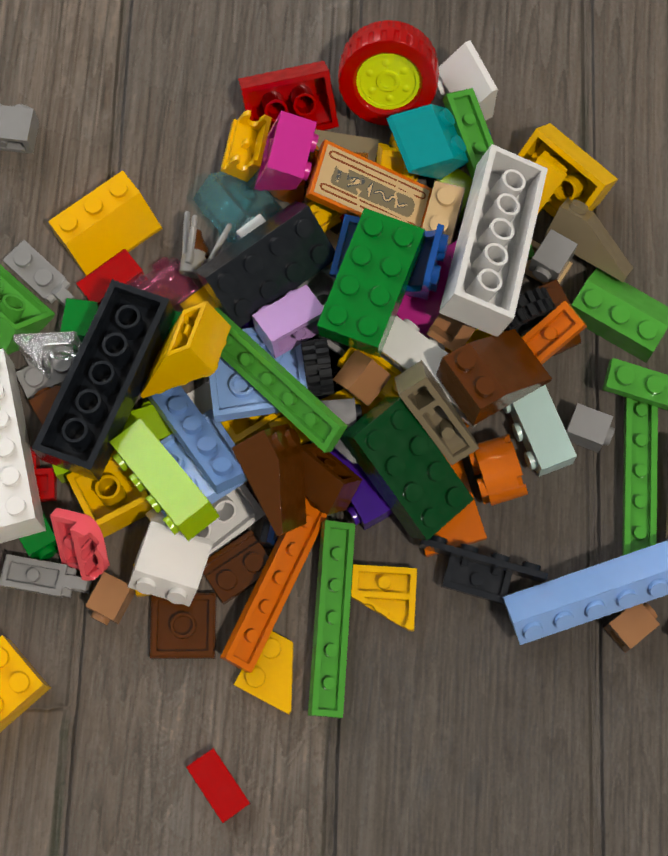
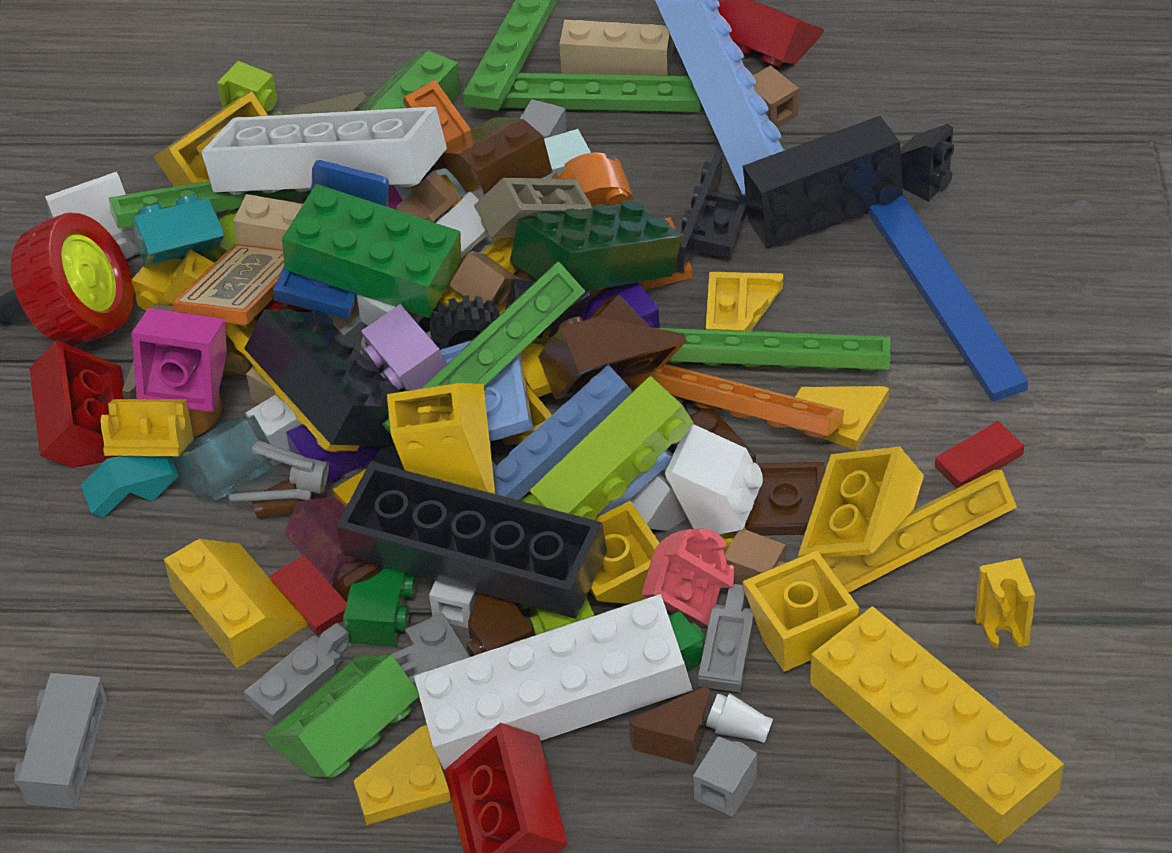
camera: 90 degrees left, 25 degrees down
(42, 347) = (419, 635): clear slope -> none
(48, 788) = (1005, 601): none -> yellow hinge
(53, 630) = (799, 608): none -> yellow slope
(128, 717) = (929, 529): none -> yellow plate
(142, 679) = (861, 502): none -> yellow slope
(214, 136) = (124, 475): none -> teal slope
(409, 766) = (949, 299): none -> blue tile
(506, 666) = (823, 181): none -> black brick
(542, 759) = (928, 162): none -> black slope
(634, 189) = (244, 79): none -> lime brick

